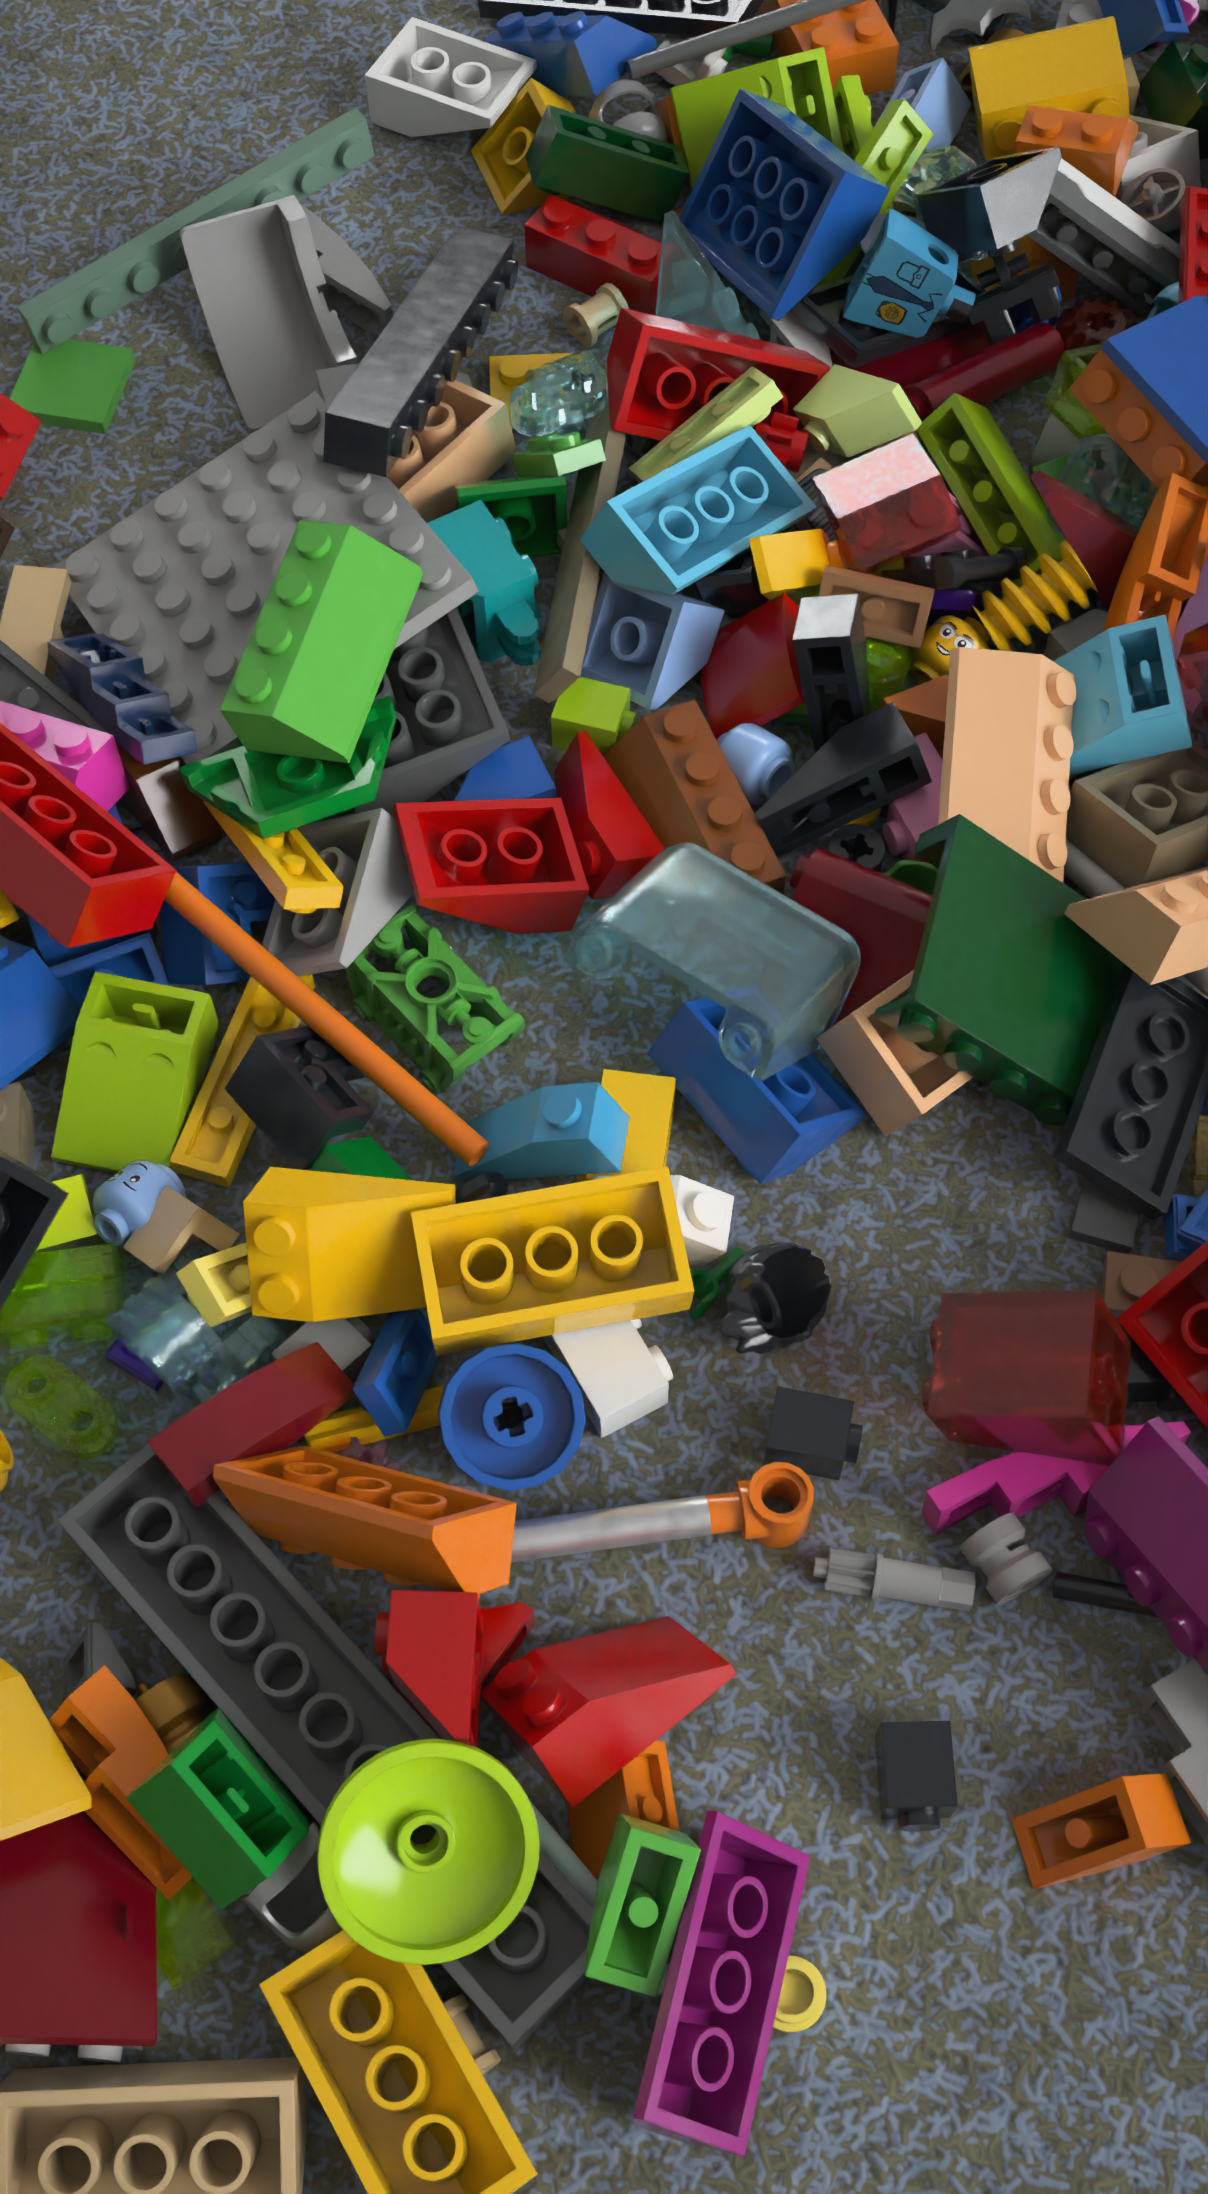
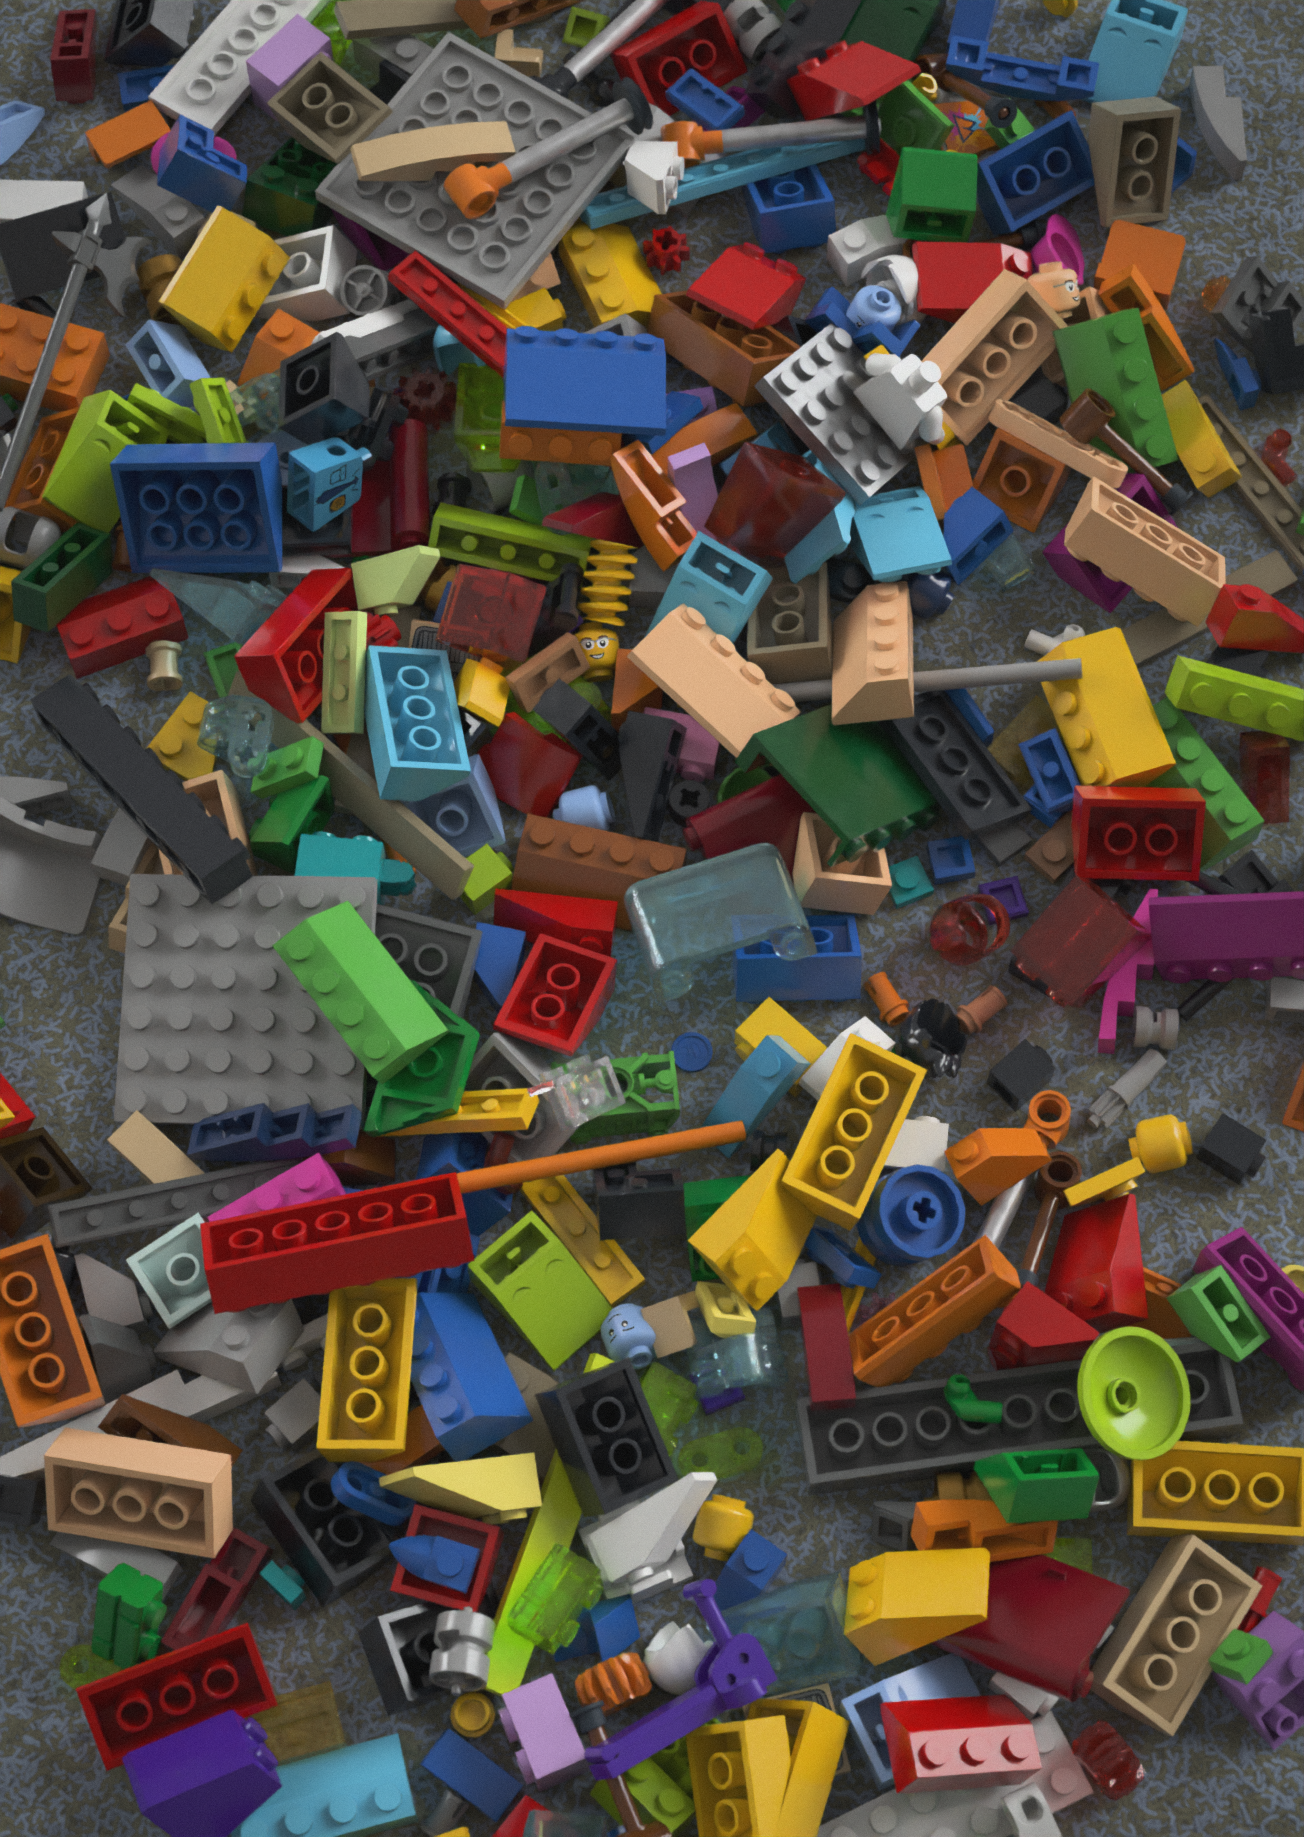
camera: 55 degrees left, 5 degrees up
(257, 923) = (498, 1155): none -> clear red arm
(284, 1644) = (967, 1405): none -> green arm
(372, 936) = (581, 1091): none -> clear bracket
(557, 1056) = (692, 1052): none -> blue piece
(659, 1469) = (996, 1160): none -> orange slope
(714, 1549) = (1052, 1198): none -> reddish brown piece
(738, 1637) = (1106, 1185): none -> yellow wing
(788, 1213) = (886, 999): none -> orange pin
(852, 1672) = (1161, 1143): none -> yellow head
(859, 1333) = (980, 1010): none -> nougat pin
(957, 1145) = (909, 882): none -> teal plate
(957, 1220) = (952, 919): none -> clear red helmet
(1019, 422) = (452, 494): none -> black bush
(1025, 1173) = (950, 860): none -> blue plate
(1027, 1264) = (1009, 893): none -> dark purple tile
(1089, 142) = (300, 306): orange slope -> none

